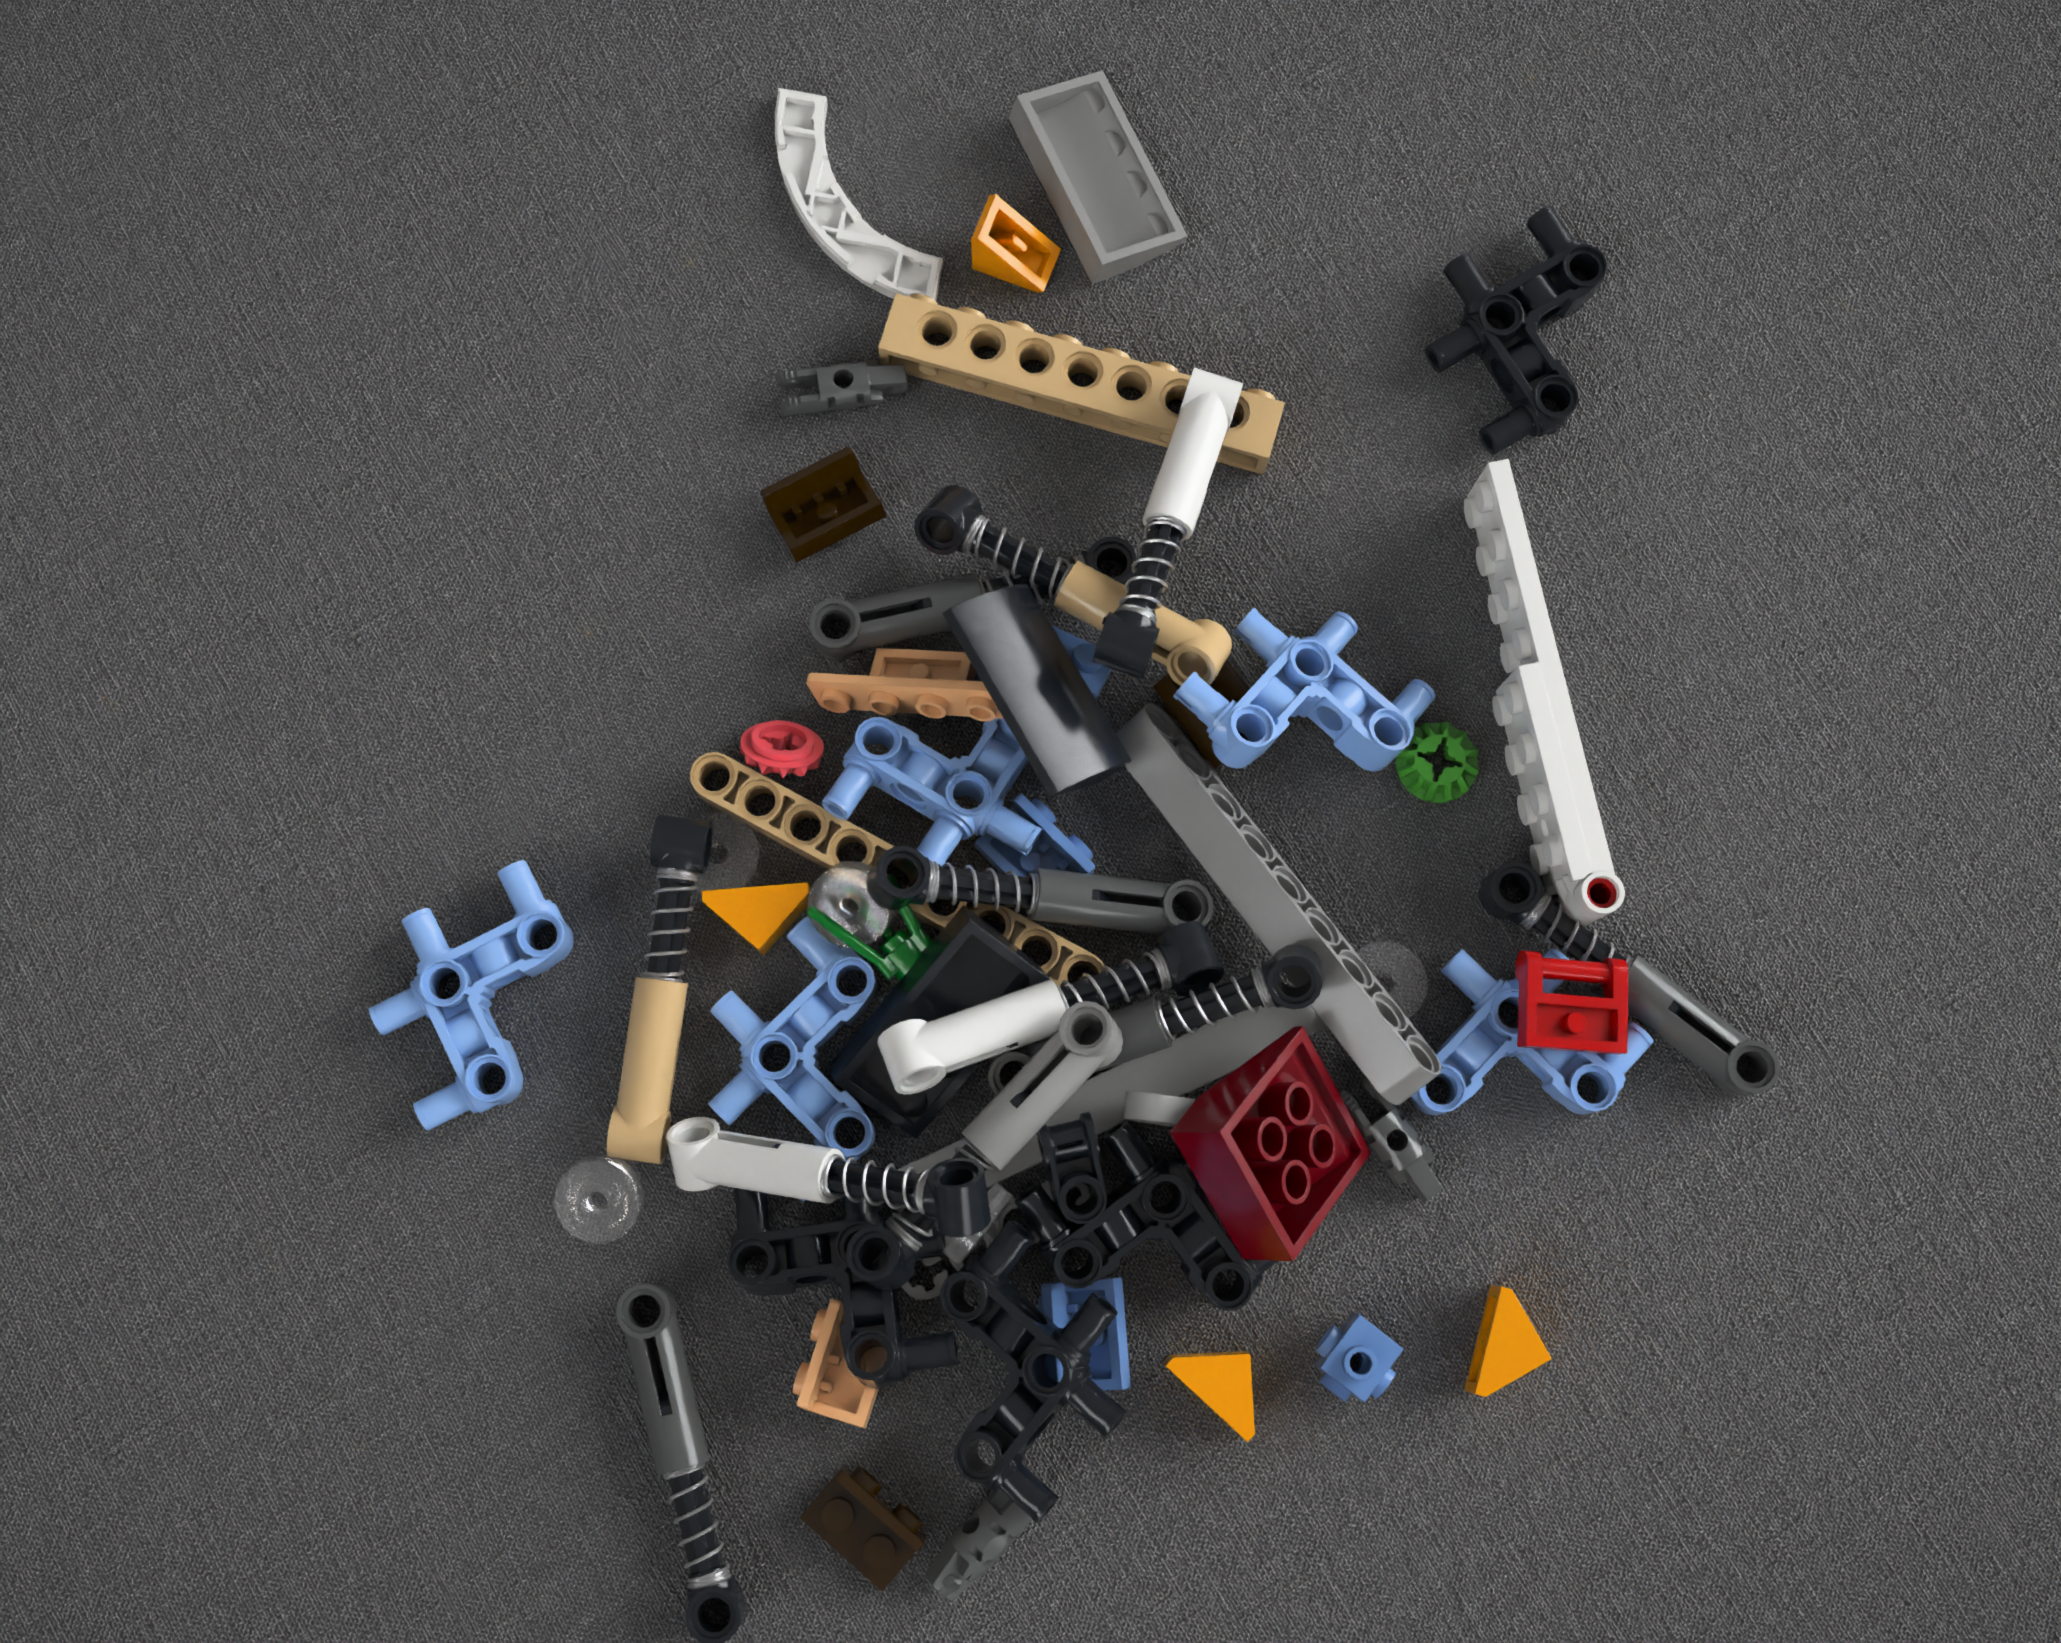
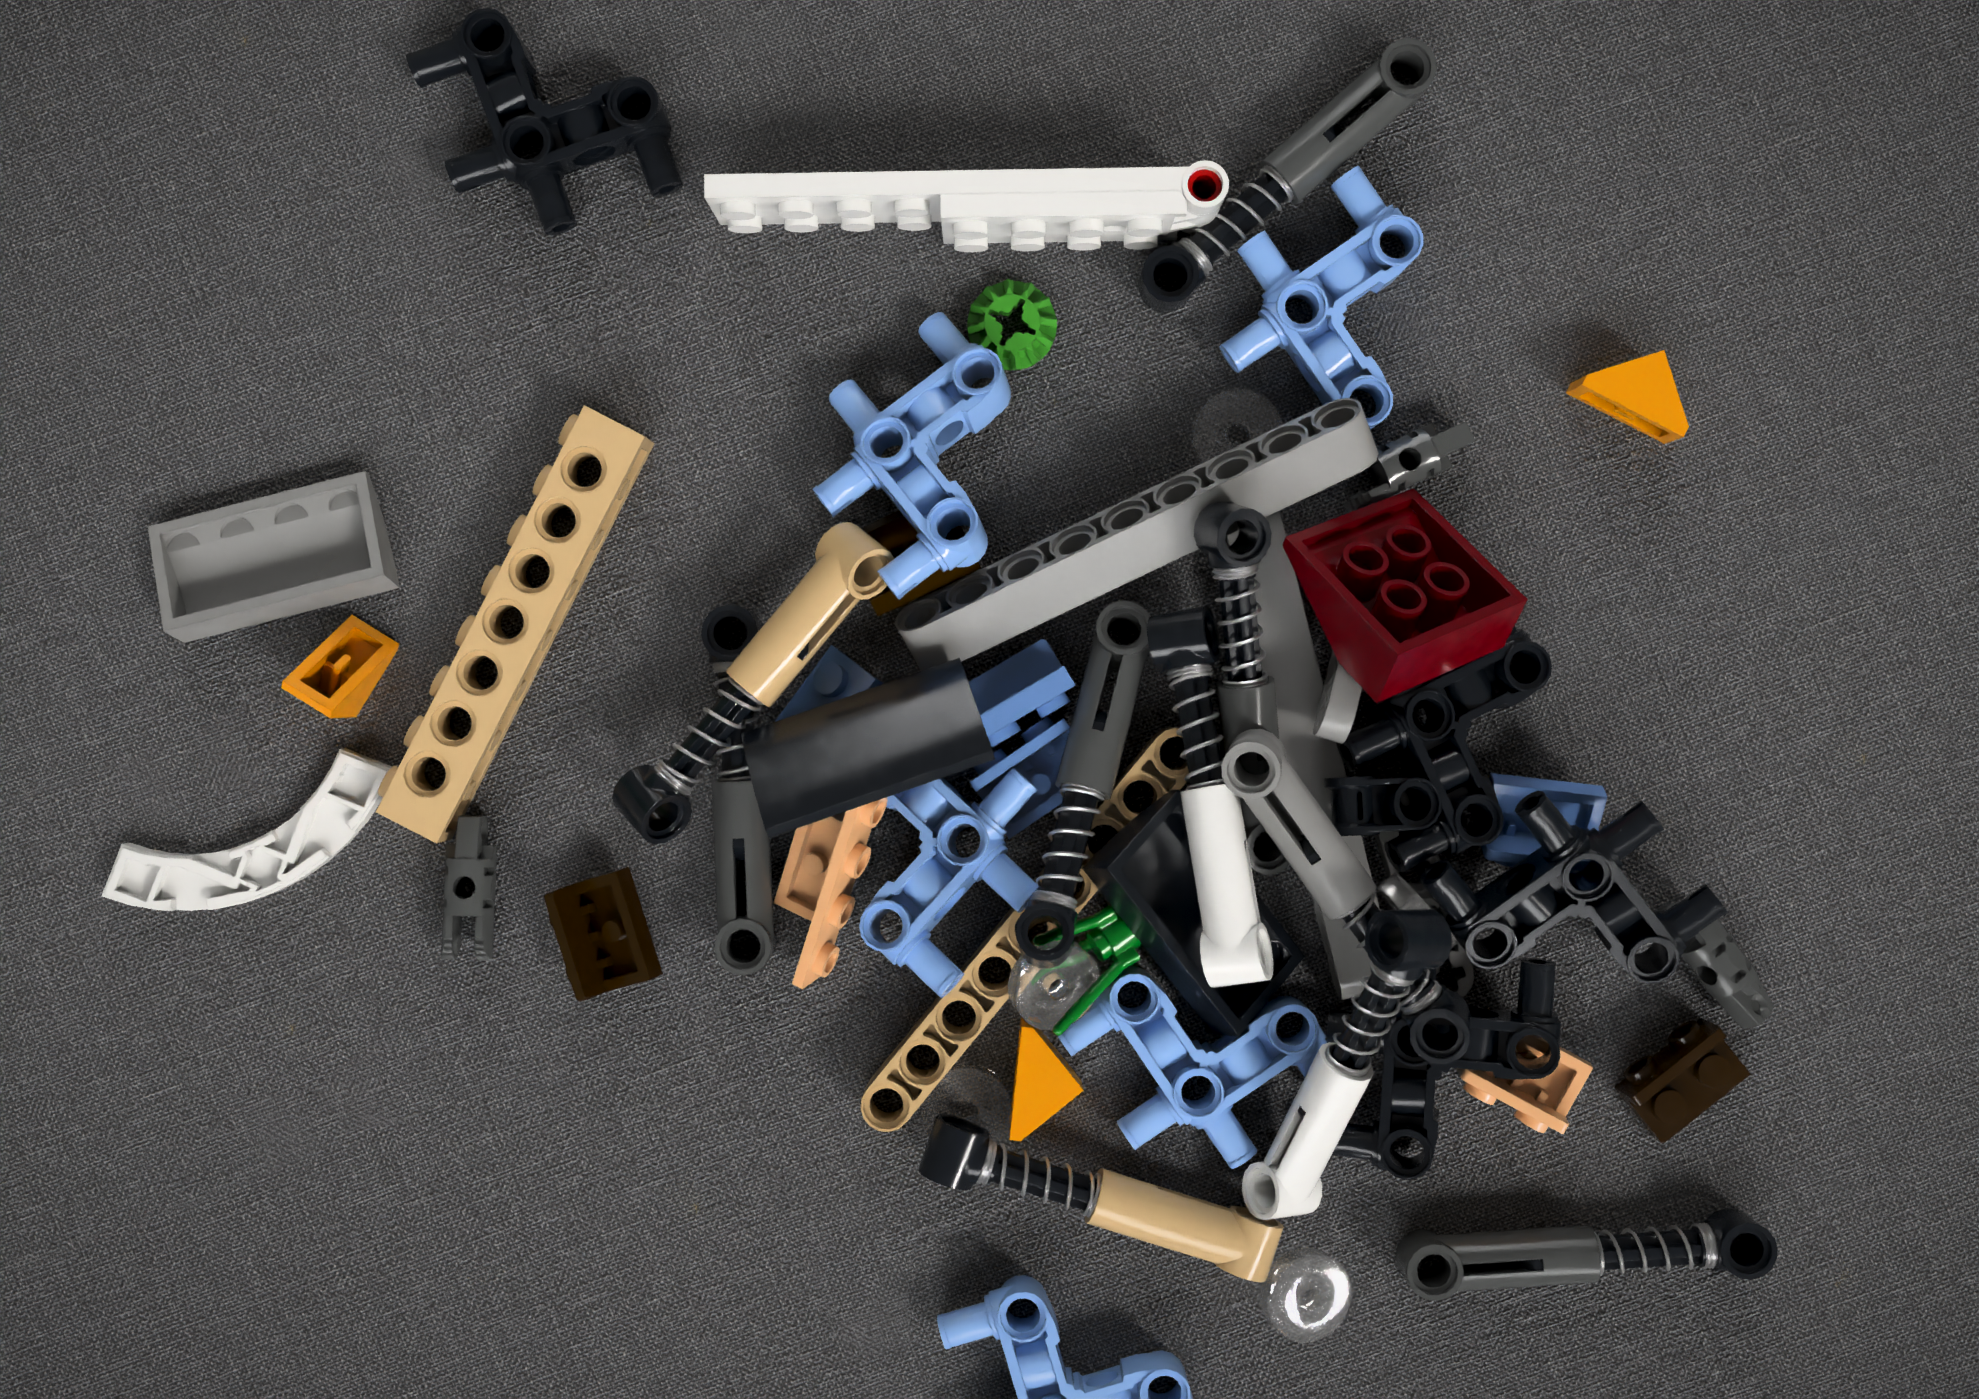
camera: 75 degrees left, 10 degrees up
(767, 746) = (851, 1029): coral gear -> none
(1108, 820) = (1019, 686): none -> medium blue bracket
(1170, 518) = (699, 562): piece -> none
(1222, 1383) = (1614, 695): light orange slope -> none
(1376, 1356) = (1621, 549): medium blue brick -> none
(1572, 1020) = (1327, 248): red plate -> none

